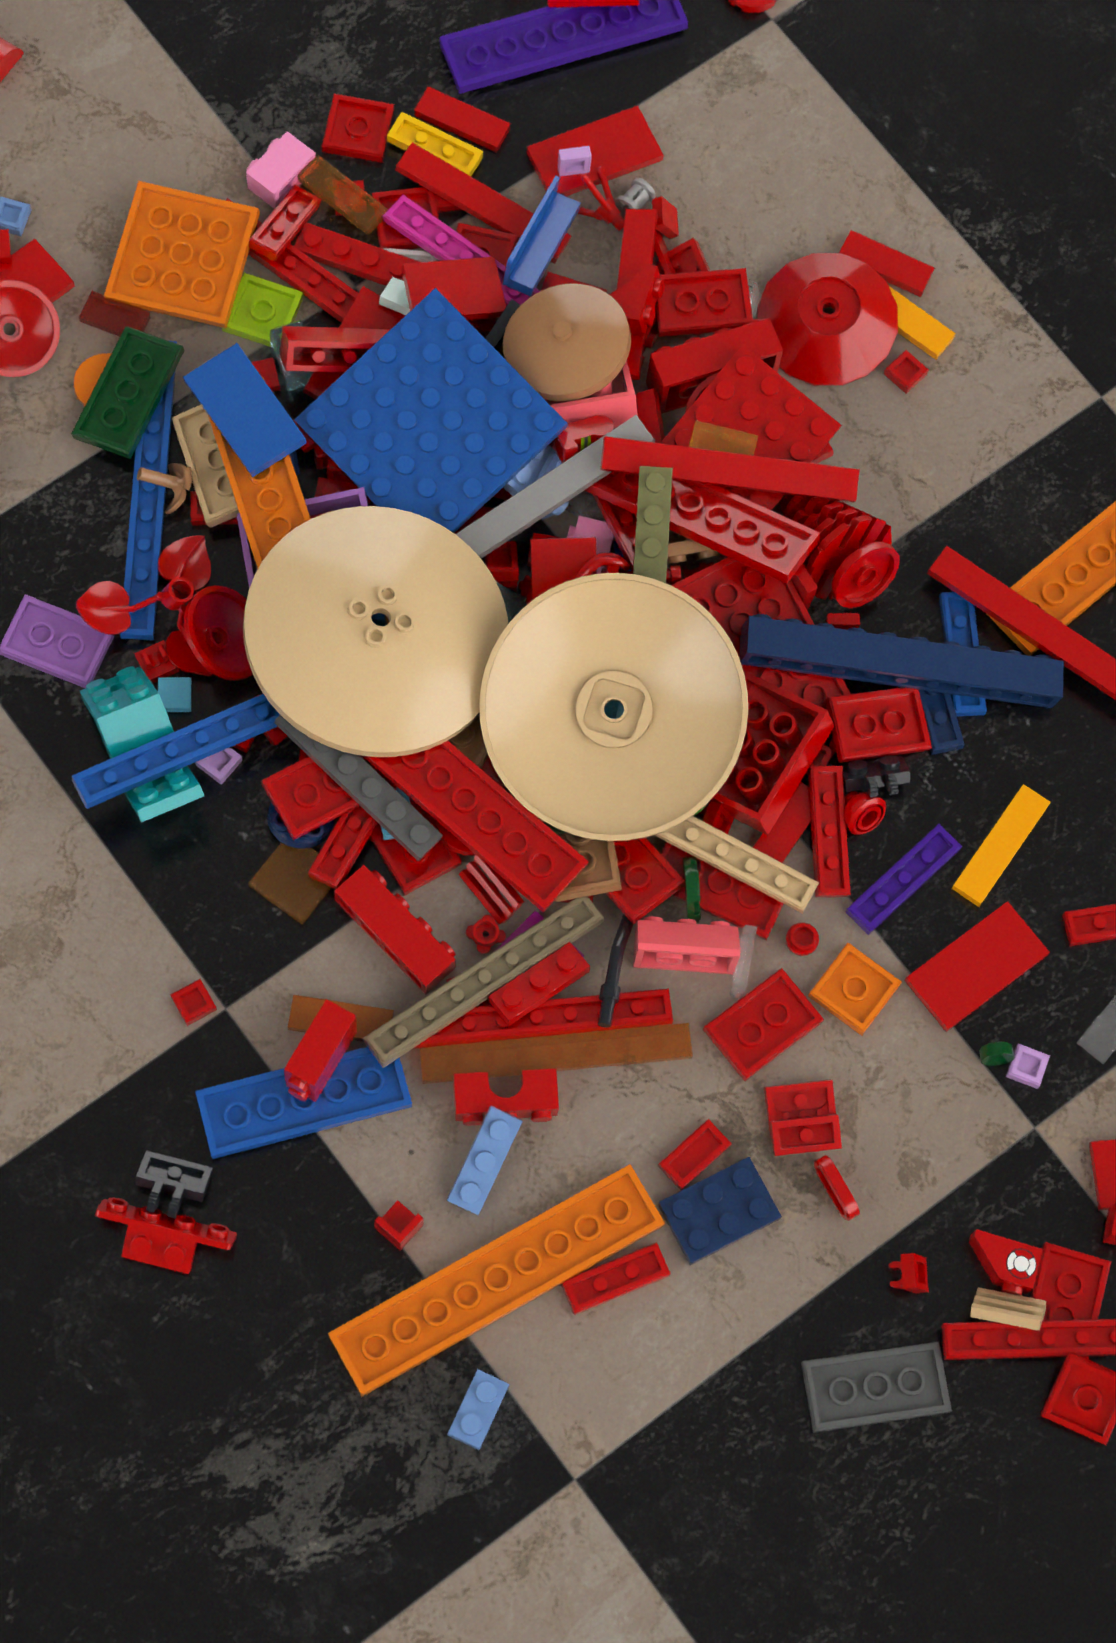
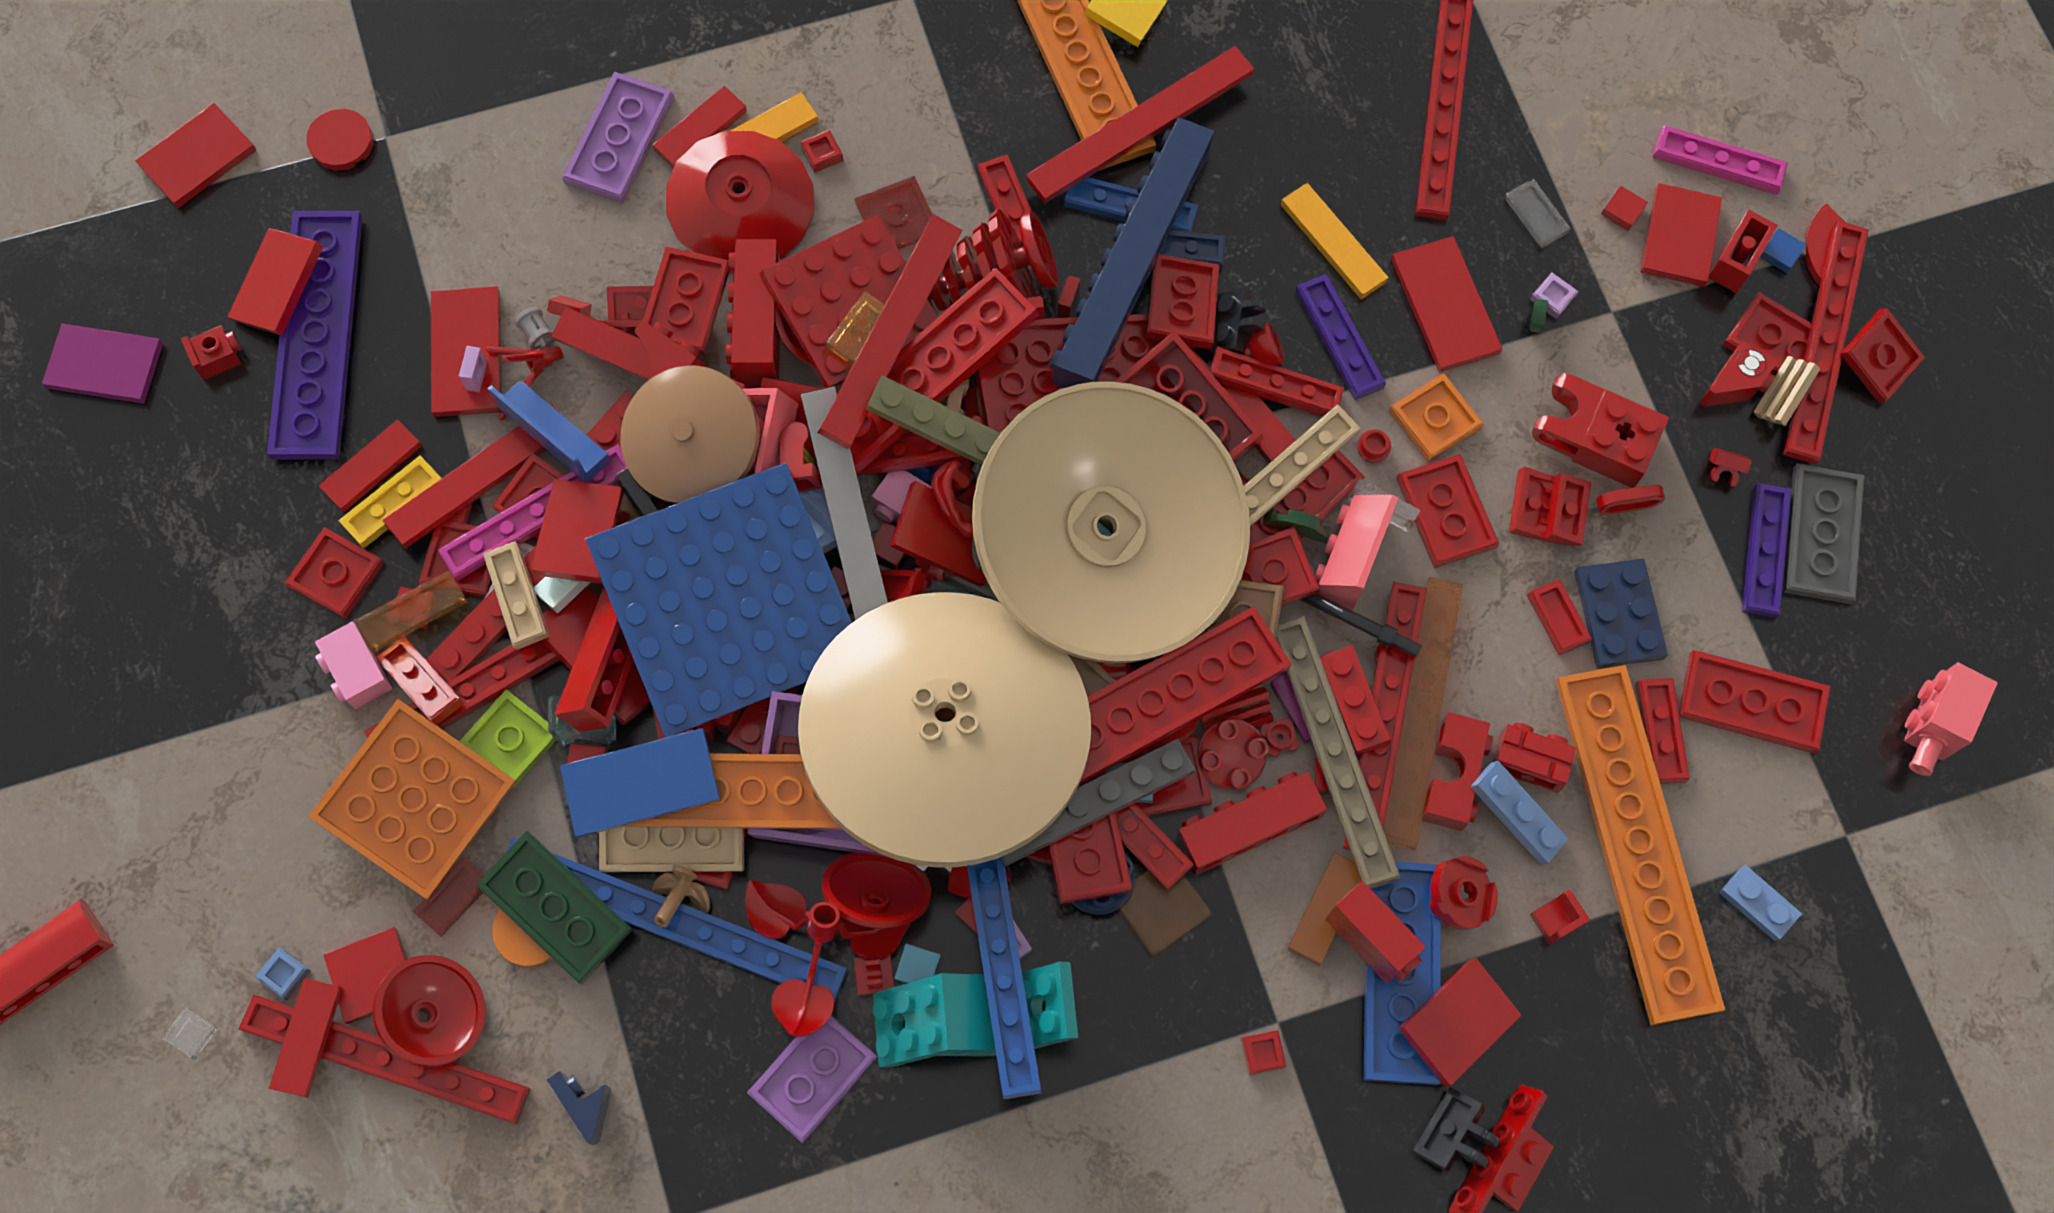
camera: 65 degrees left, 0 degrees up
(272, 1158) = (1459, 1022): none -> red tile
(381, 265) = (516, 595): none -> tan tile
(406, 1142) = (1446, 896): none -> red plate
(454, 896) = (1232, 754): none -> red dish
(544, 1161) = (1535, 757): none -> red brick
(676, 1358) = (1754, 701): none -> red tile
(717, 1535) = (1947, 715): none -> coral brick
(837, 1335) = (1766, 550): none -> dark purple tile
(848, 201) = (618, 137): none -> medium lavender tile
(872, 451) = (899, 208): none -> clear red tile
(900, 1133) = (1603, 430): none -> red brick
(927, 543) = (1004, 189): none -> red tile

